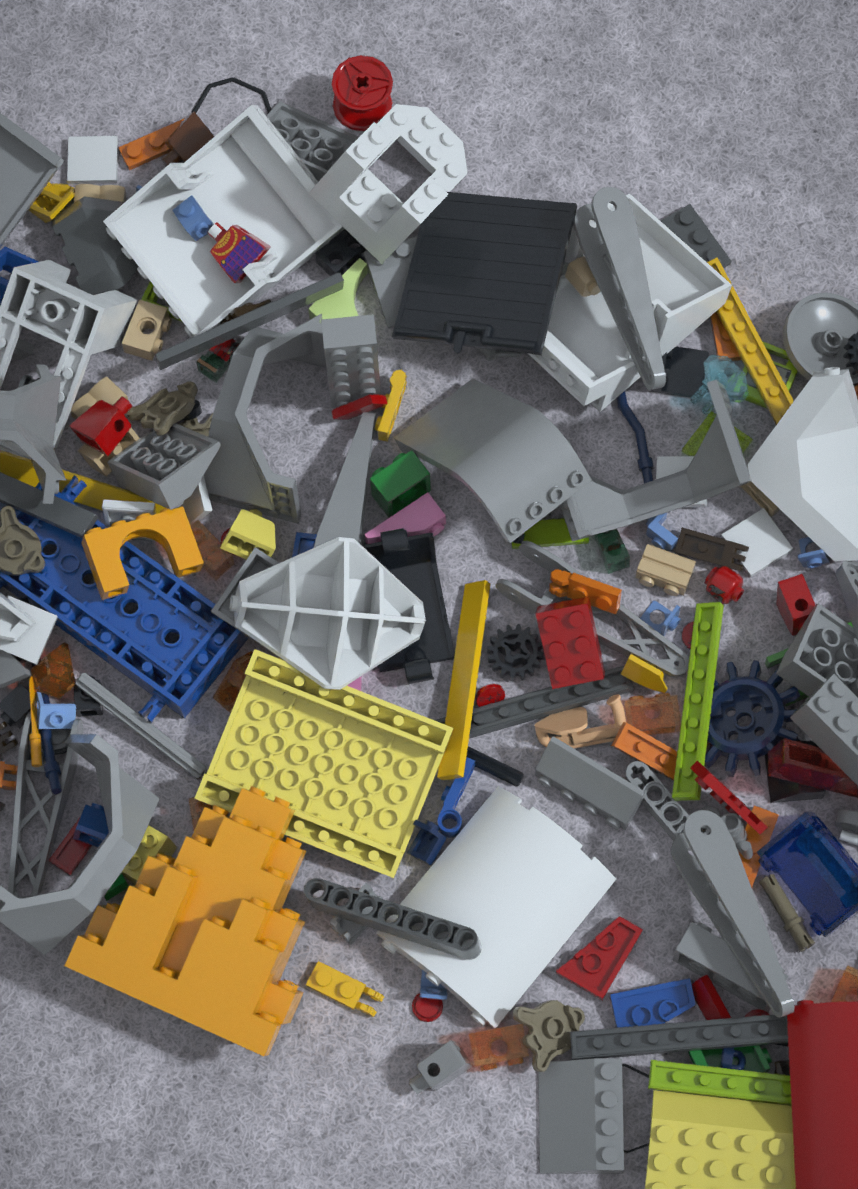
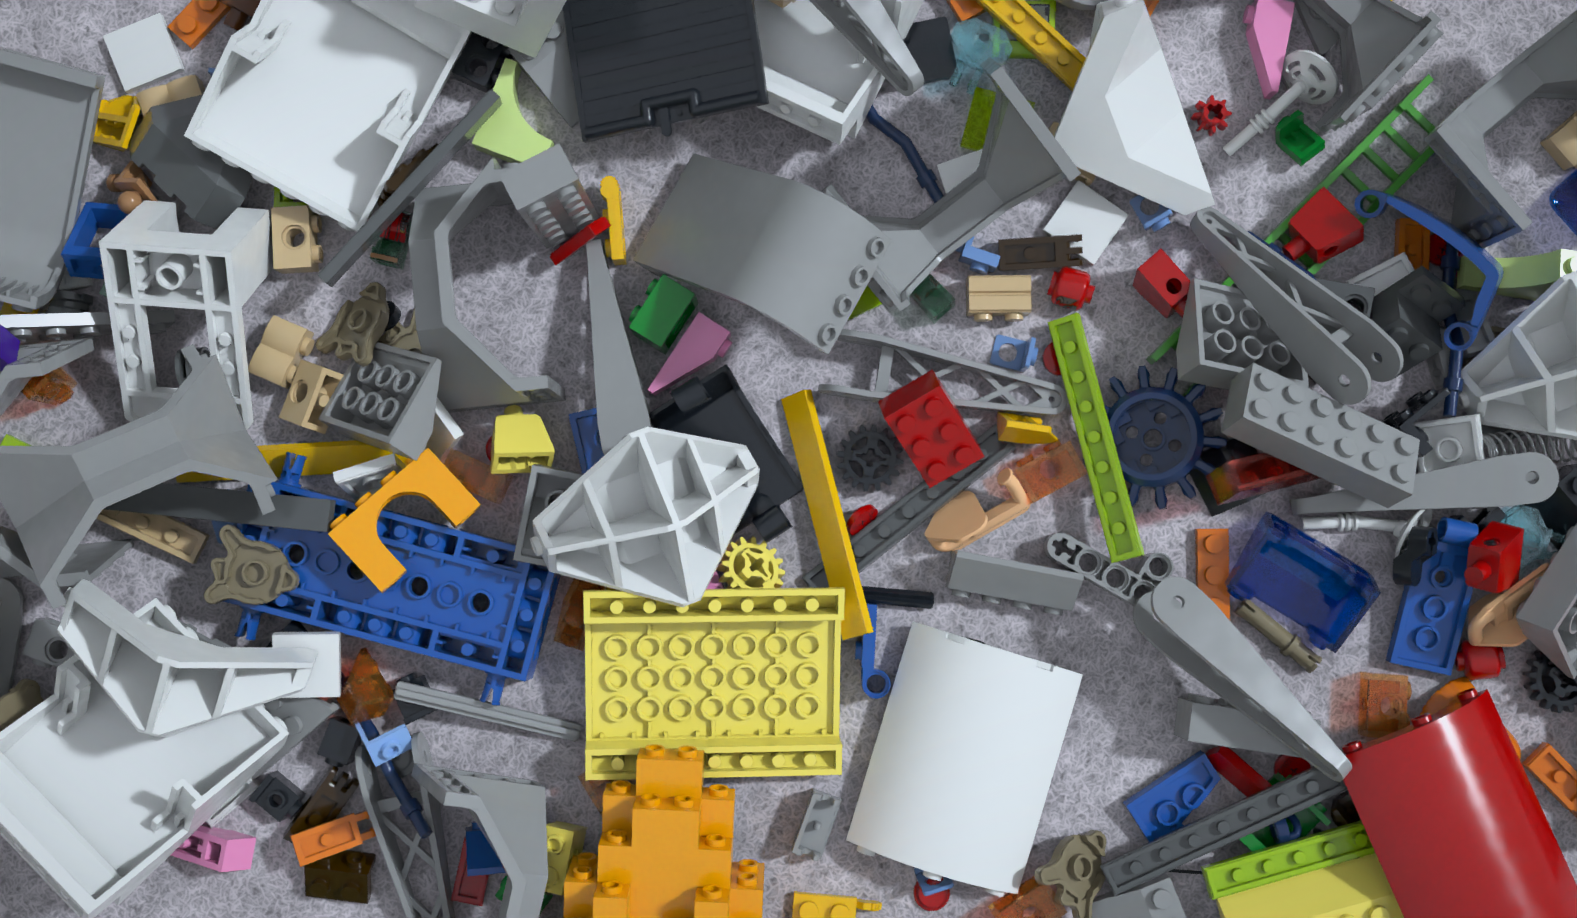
camera: 25 degrees left, 15 degrees up
(35, 737) = (376, 779): light orange piece -> none
(42, 247) = (133, 185): none -> medium nougat piece
(103, 425) = (295, 380): red torso -> none
(193, 218) = (291, 87): medium blue bracket -> none
(236, 249) = (358, 106): torso -> none
(389, 690) = (750, 565): none -> light yellow gear
(401, 927) = (847, 835): dark grey beam -> none
(427, 842) = (859, 715): dark blue bracket -> none
(578, 586) = (920, 360): orange hinge -> none
(602, 959) = (1100, 766): red wing -> none
(646, 750) = (1061, 516): orange plate -> none
(722, 793) = (1175, 539): red wing -> none
(736, 828) = (1193, 570): light grey piece -> none

